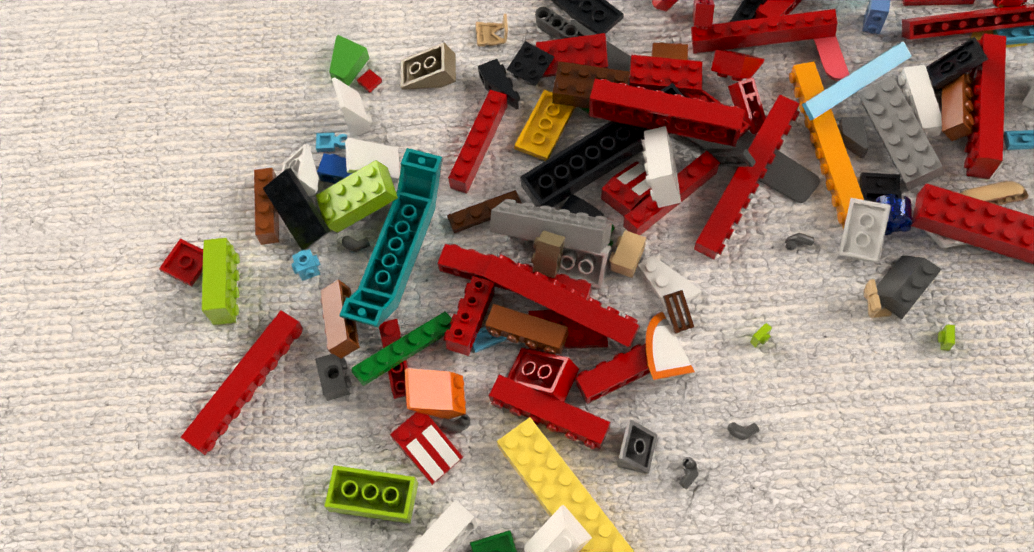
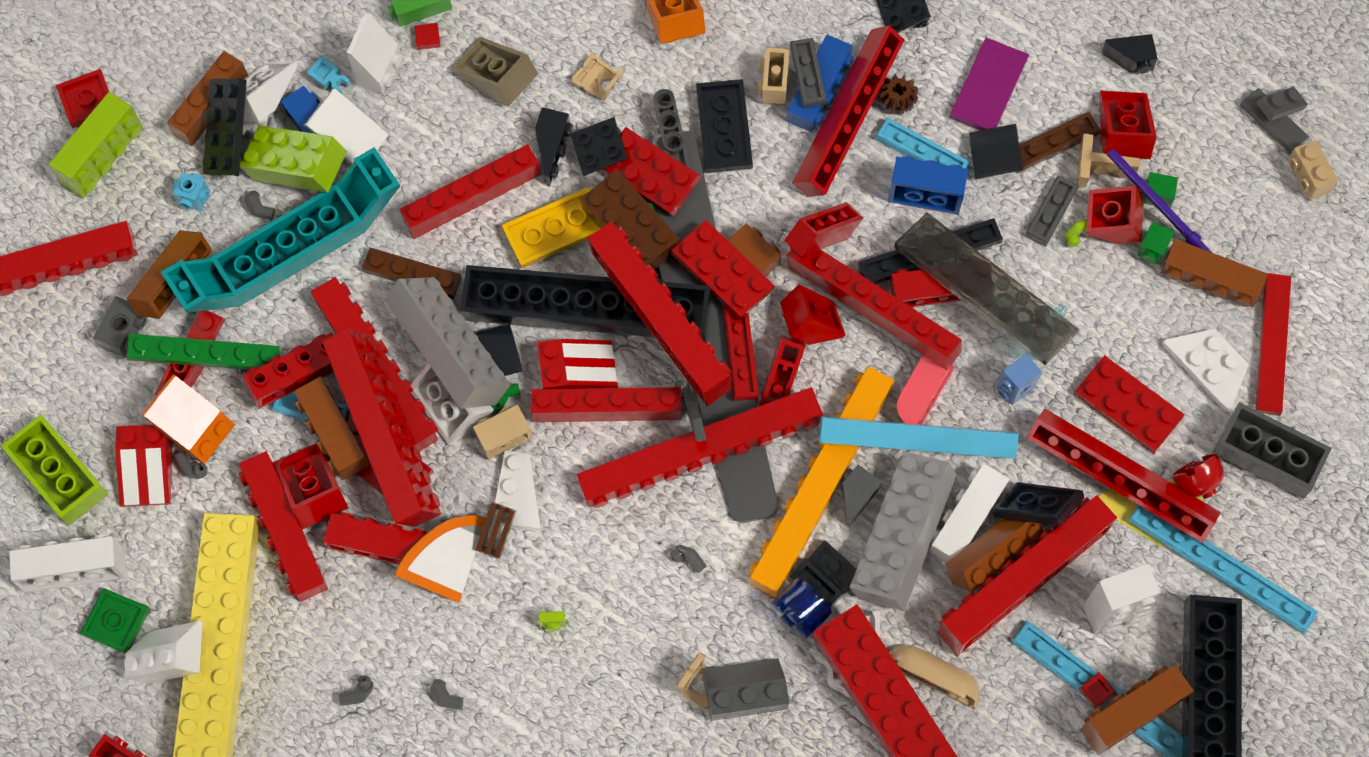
camera: 35 degrees right, 5 degrees up
(548, 253) = (414, 369): dark tan brick -> none
(637, 448) = (329, 627): flat silver slope -> none
(661, 167) = (606, 368): white brick -> none
(864, 230) = (754, 600): white tile -> none

